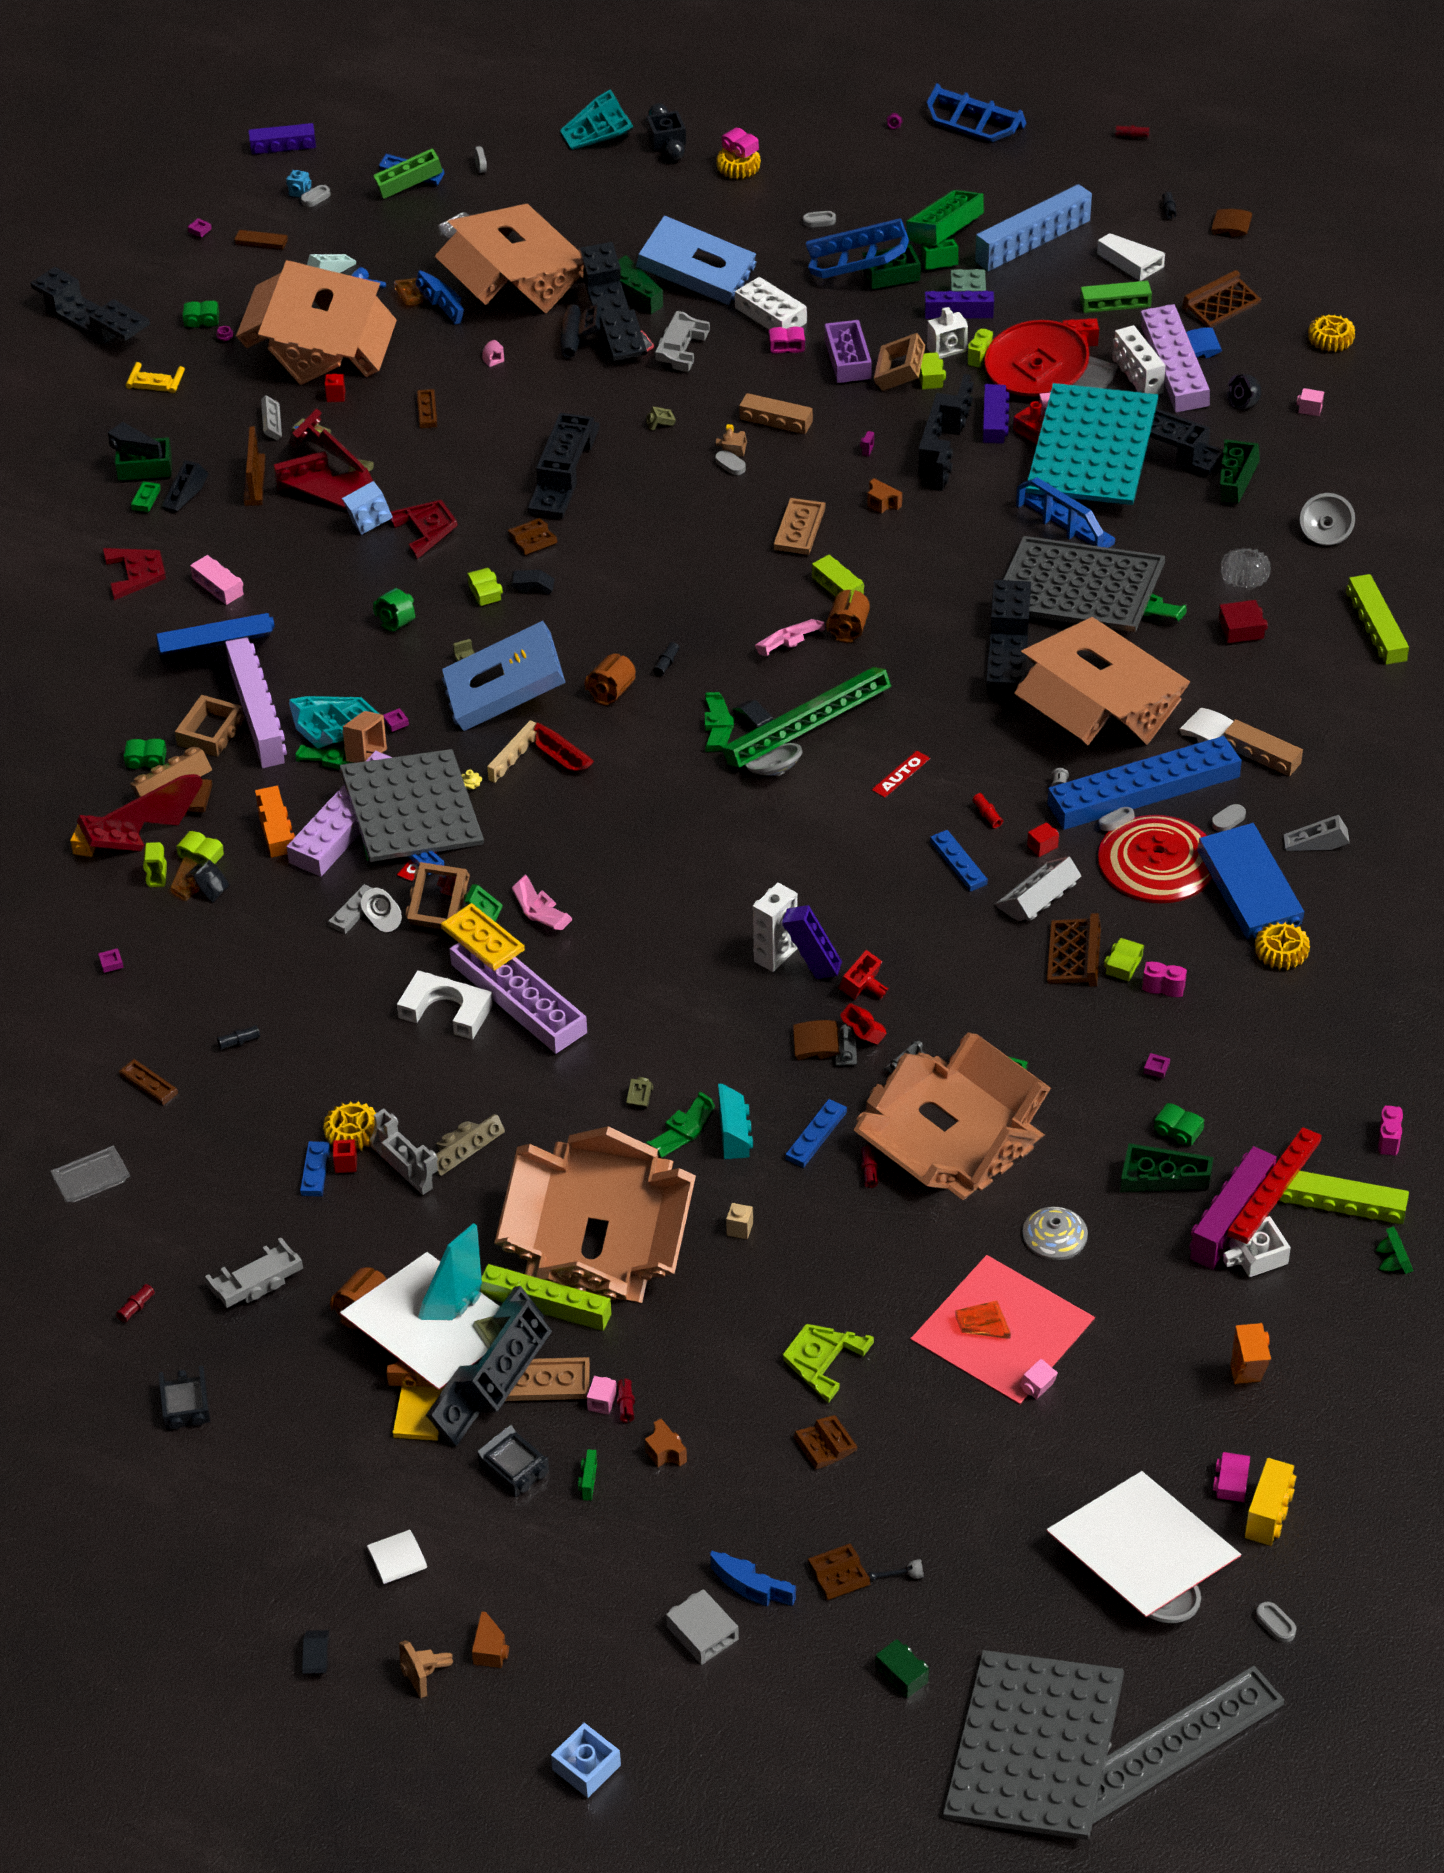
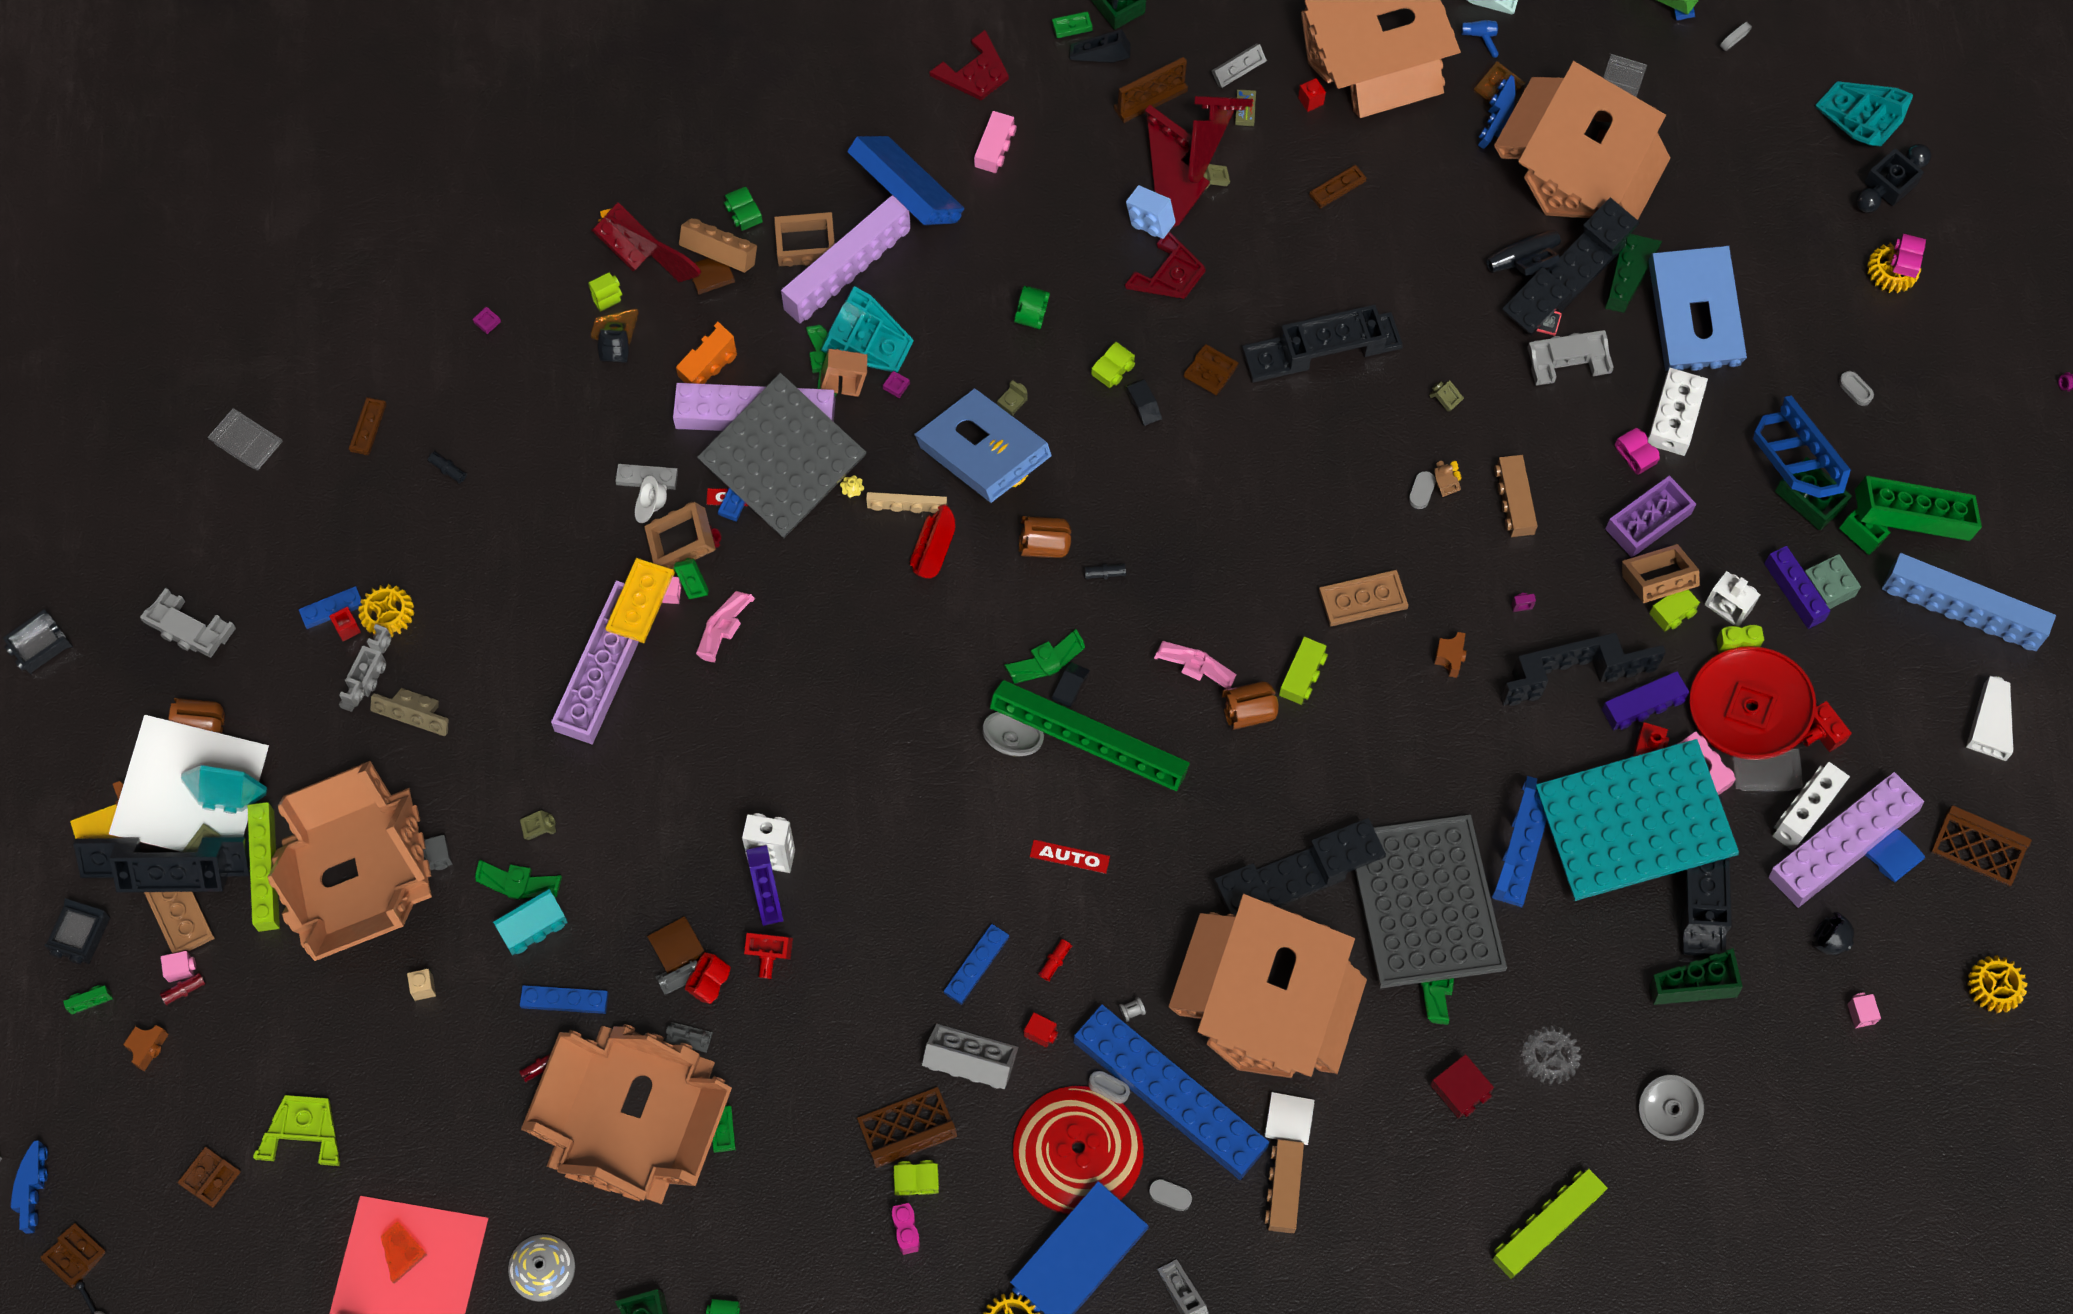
camera: 60 degrees right, 20 degrees up
(135, 1303) = (121, 550): dark red pin -> none
(199, 848) = (650, 315): lime brick -> none
(430, 988) = (577, 632): white arch -> none
(493, 353) = (1450, 200): bright pink brick -> none
(1115, 296) = (1914, 735): bright green brick -> none
(1156, 1065) = (791, 1270): magenta plate -> none

